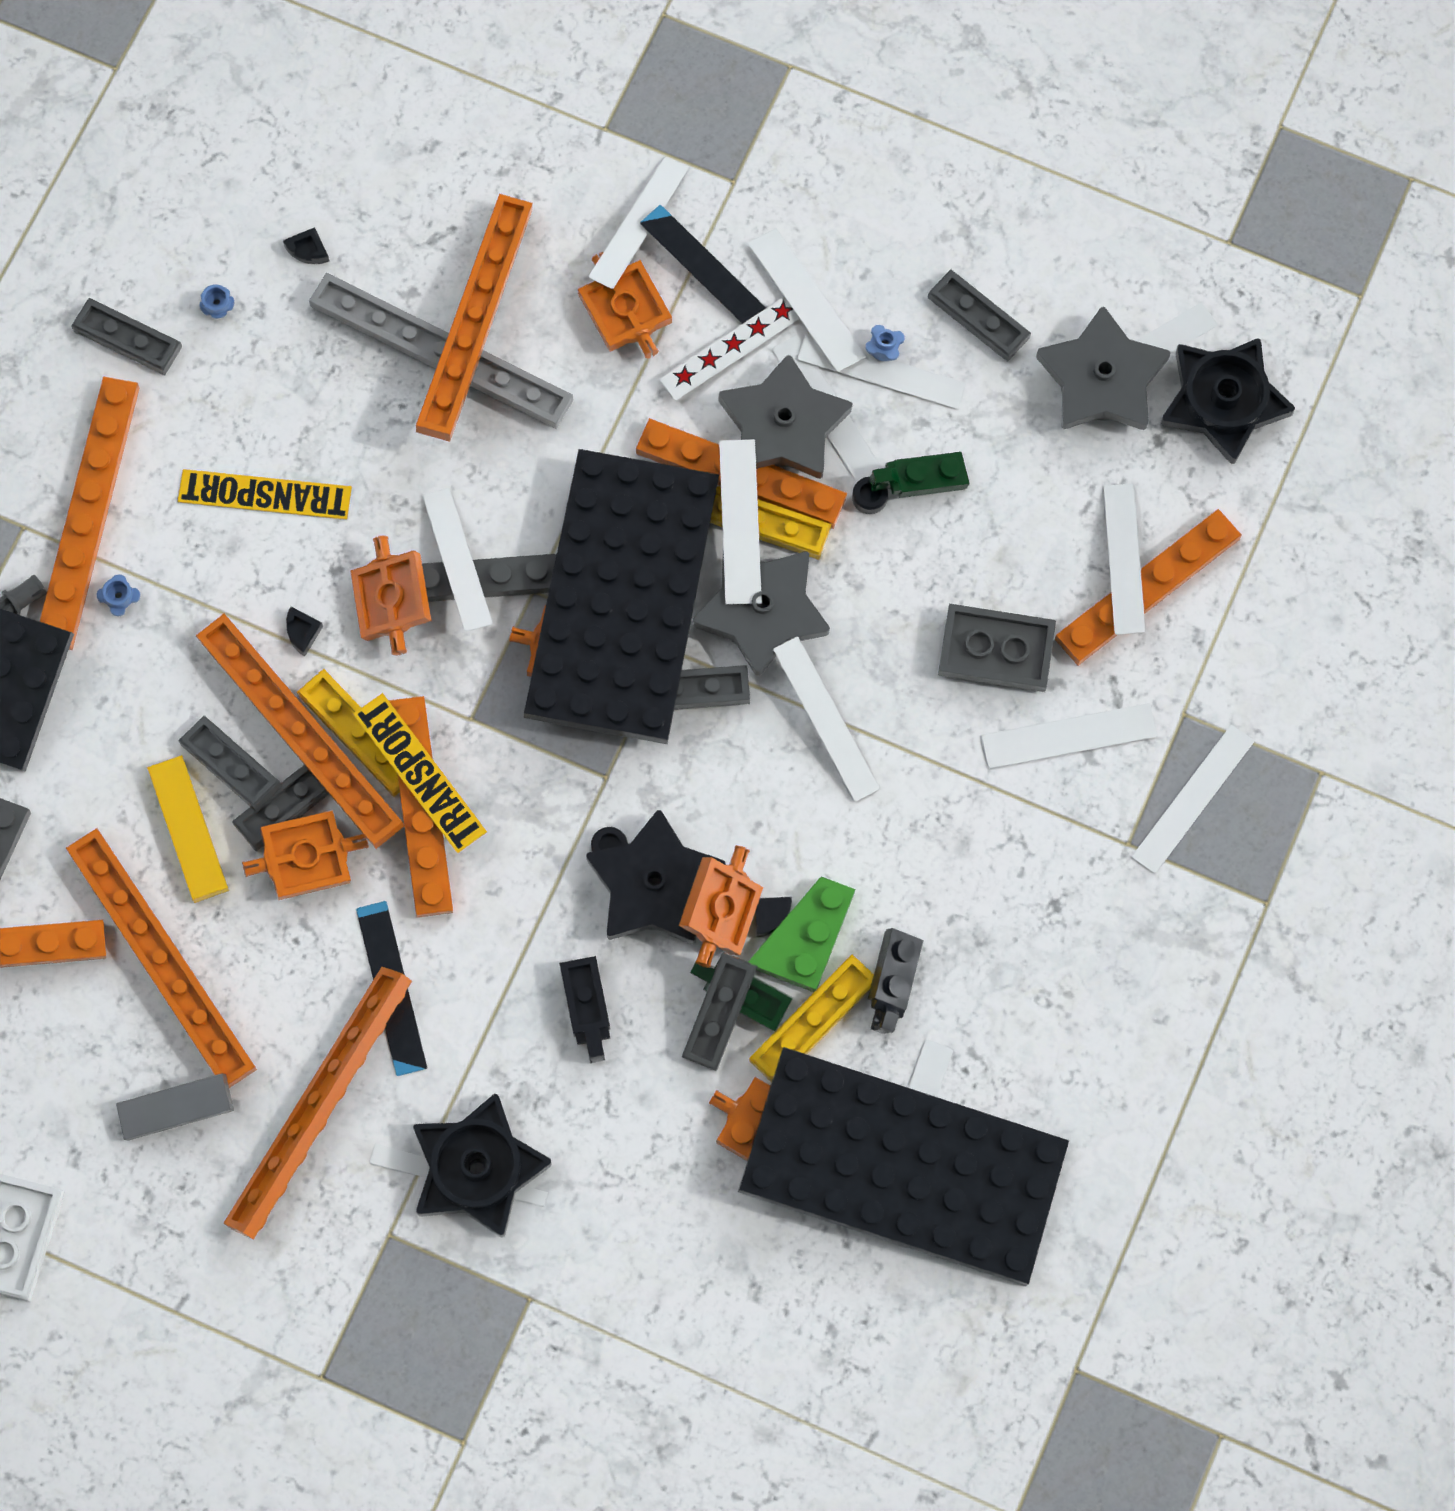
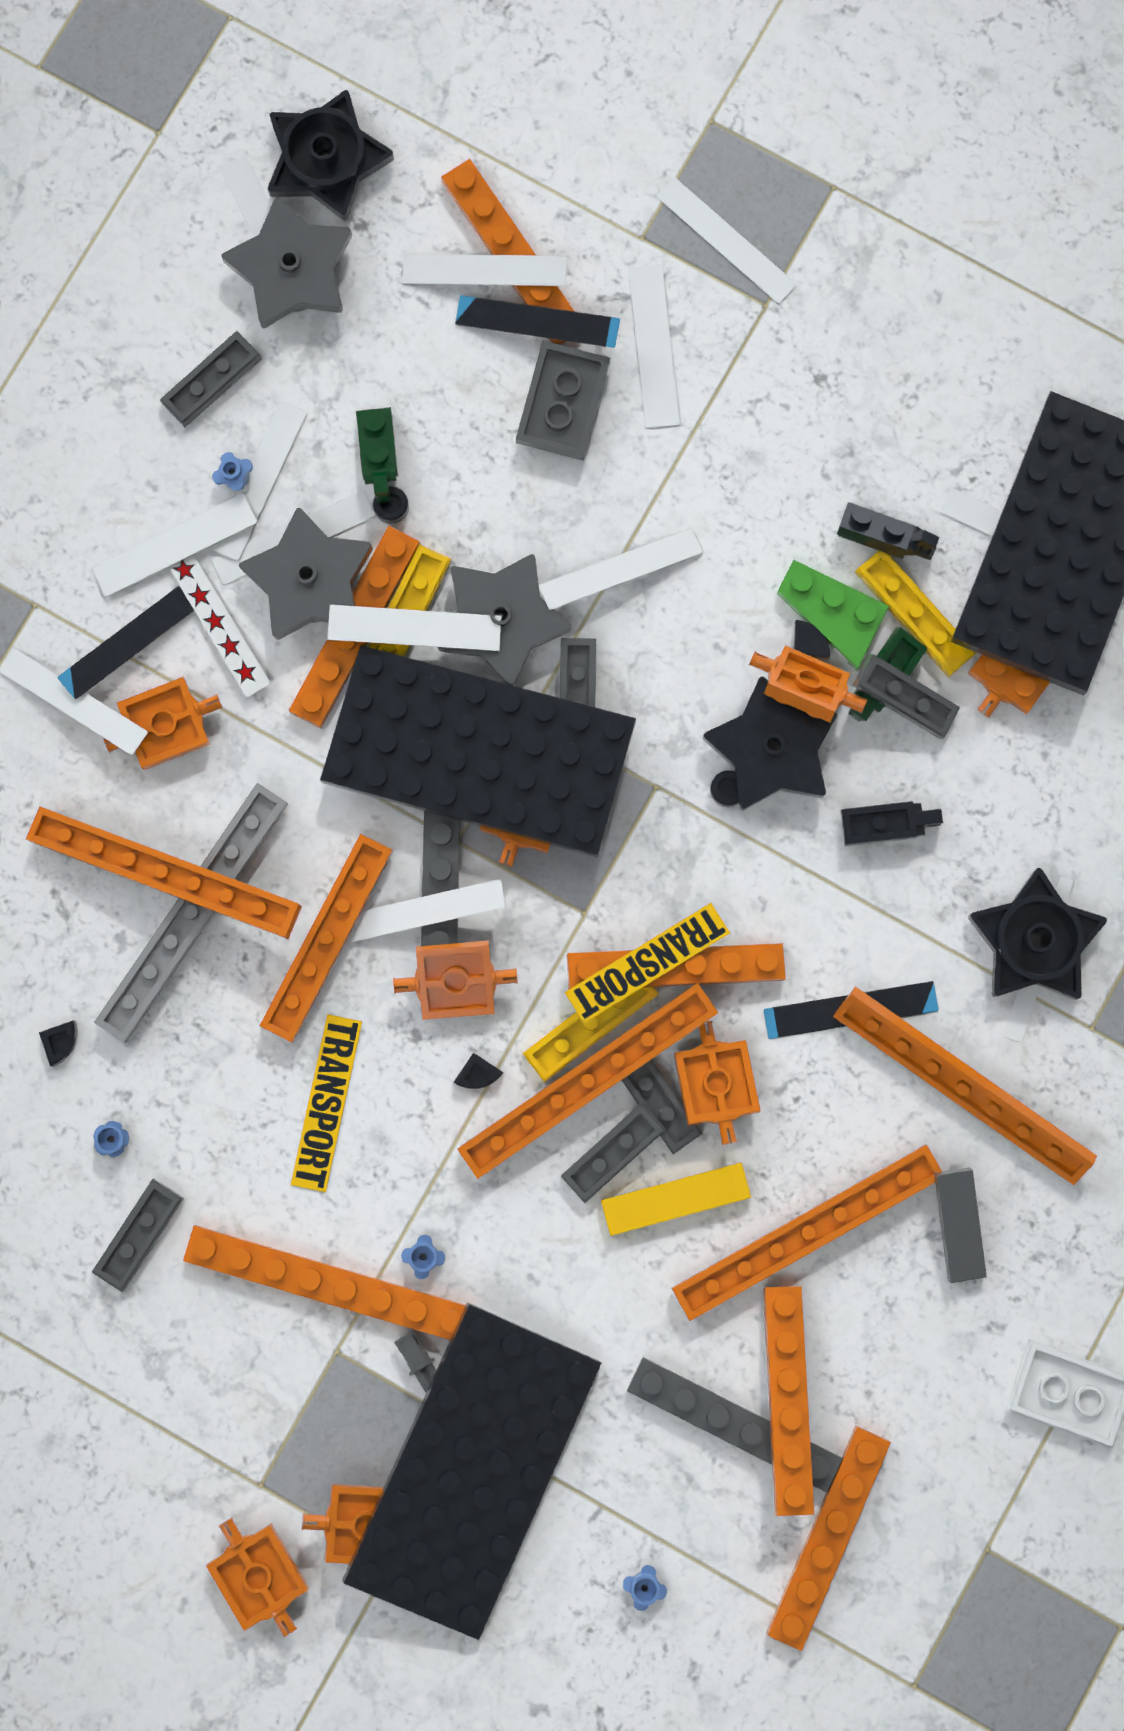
camera: 80 degrees left, 10 degrees up
(425, 475) = (326, 938): none -> orange plate
(1075, 614) = (537, 321): none -> black sticker

